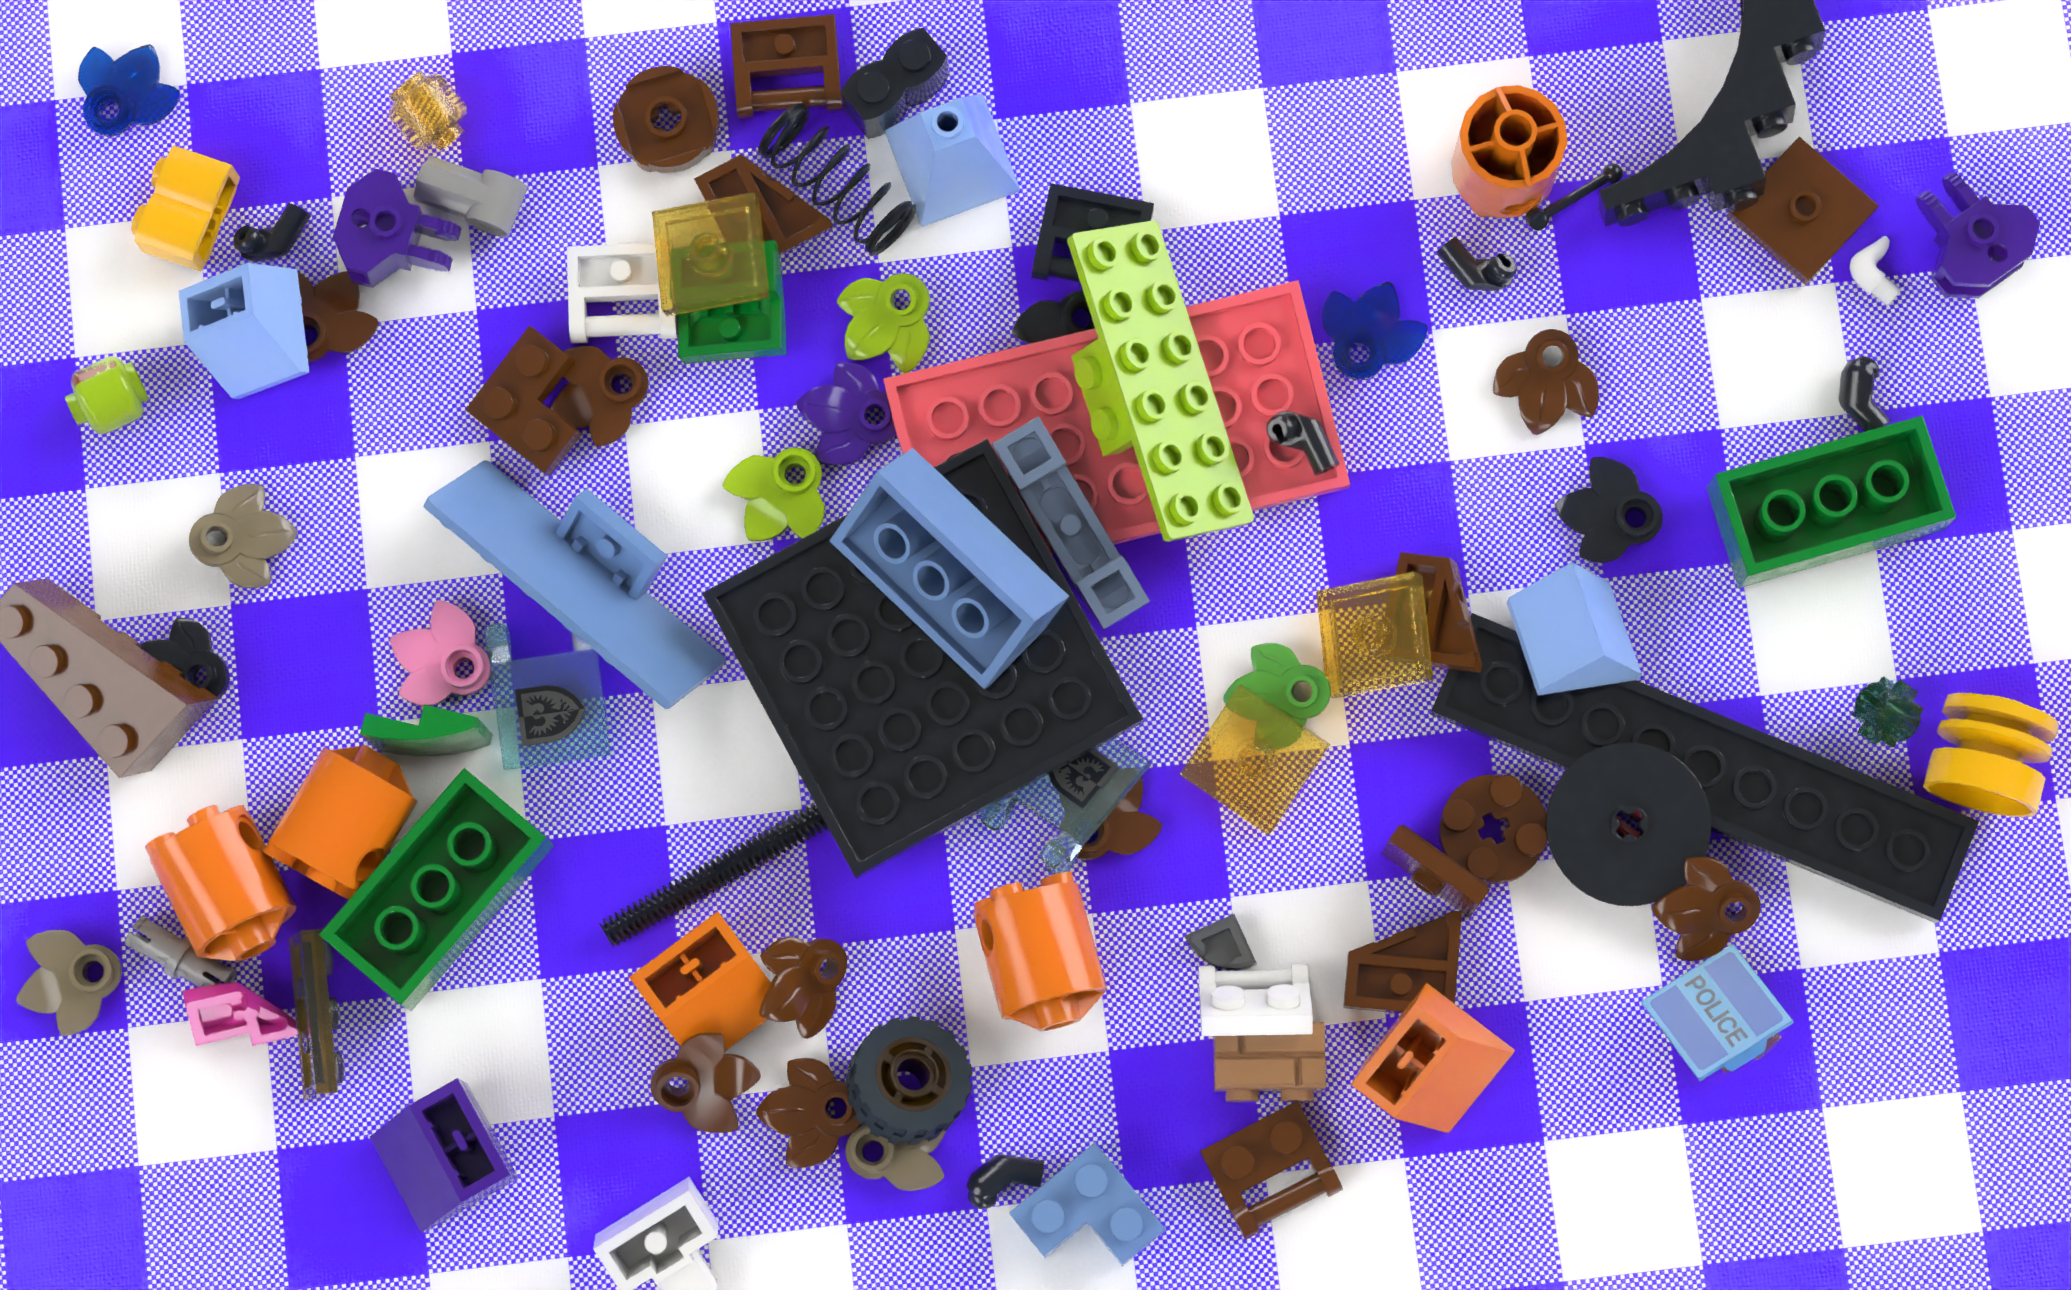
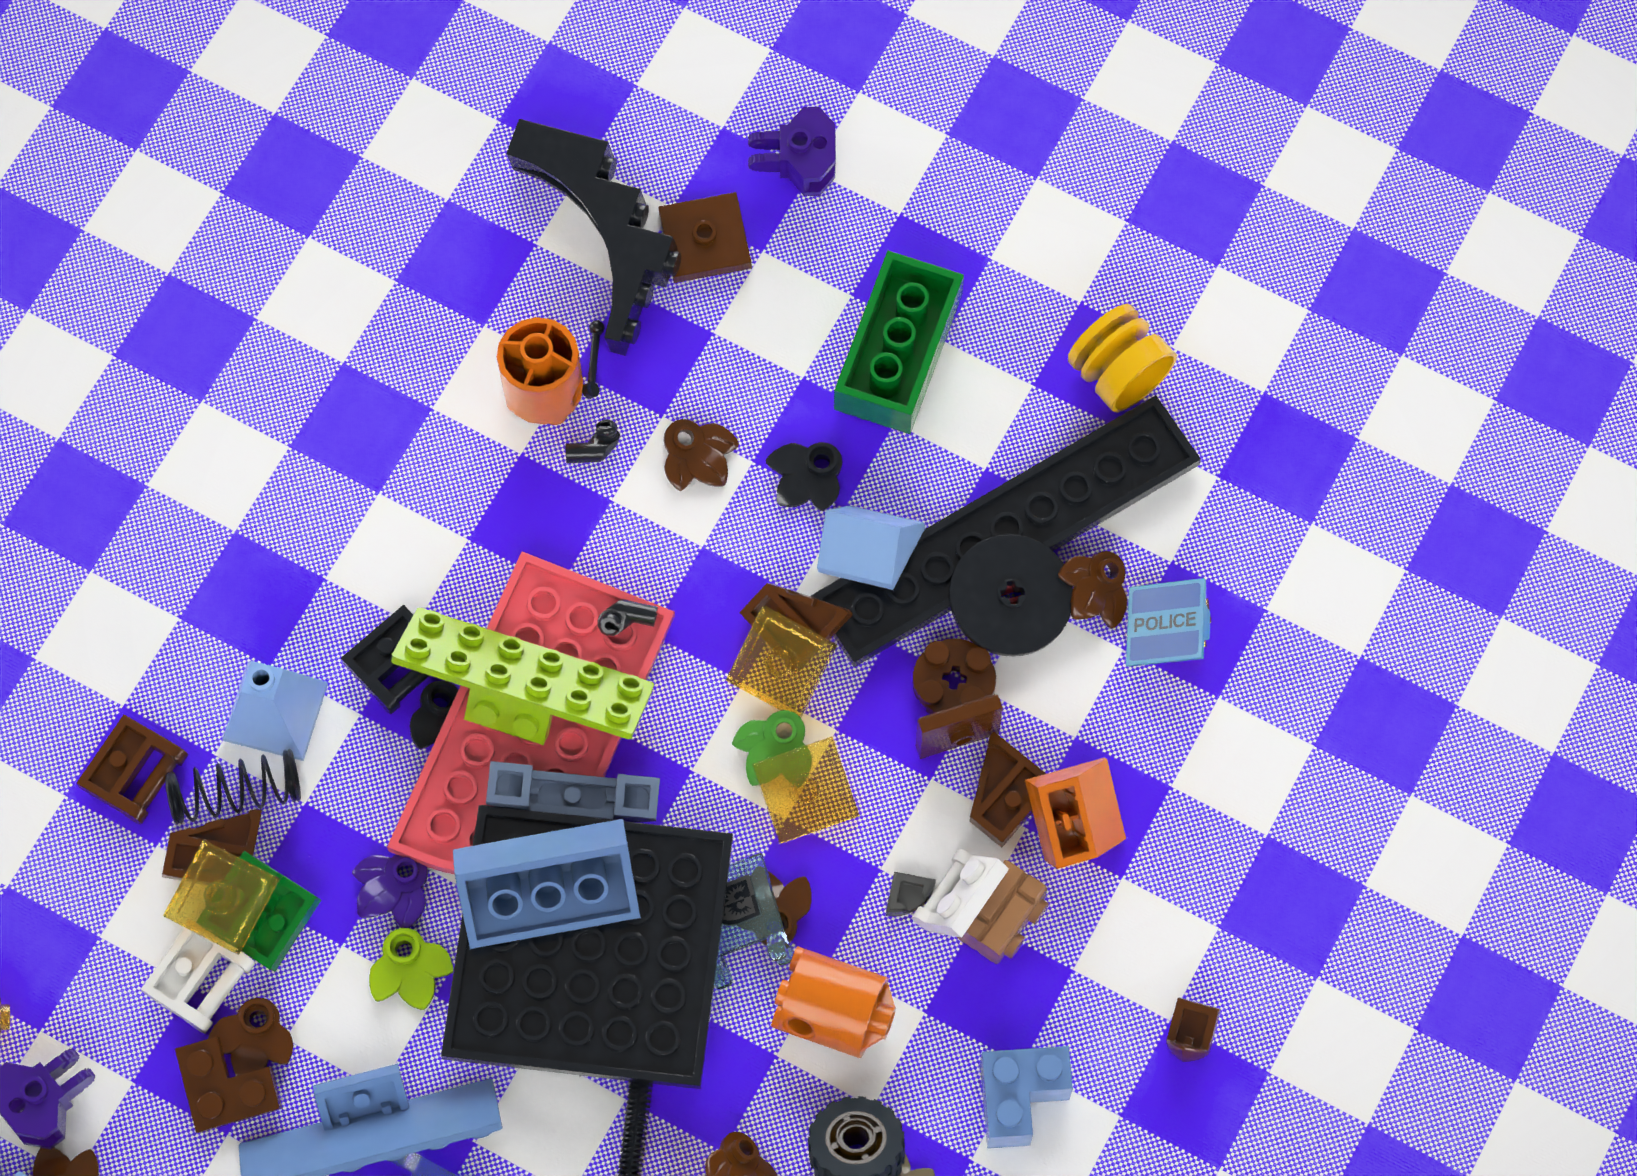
camera: 60 degrees left, 10 degrees down
(484, 200) = (65, 1022): light grey piece -> none
(640, 106) = (96, 848): reddish brown plate -> none
(883, 327) = (348, 828): lime plate -> none
(905, 77) = (198, 712): black brick -> none
(998, 1174) = (955, 1133): black arm -> none
(1262, 1153) = (1059, 958): reddish brown plate -> none
(1373, 325) = (583, 531): clear blue plate -> none
(1857, 392) = (841, 285): black arm -> none
(1868, 276) = (774, 228): white animal -> none
(1887, 712) = (1051, 400): gear -> none

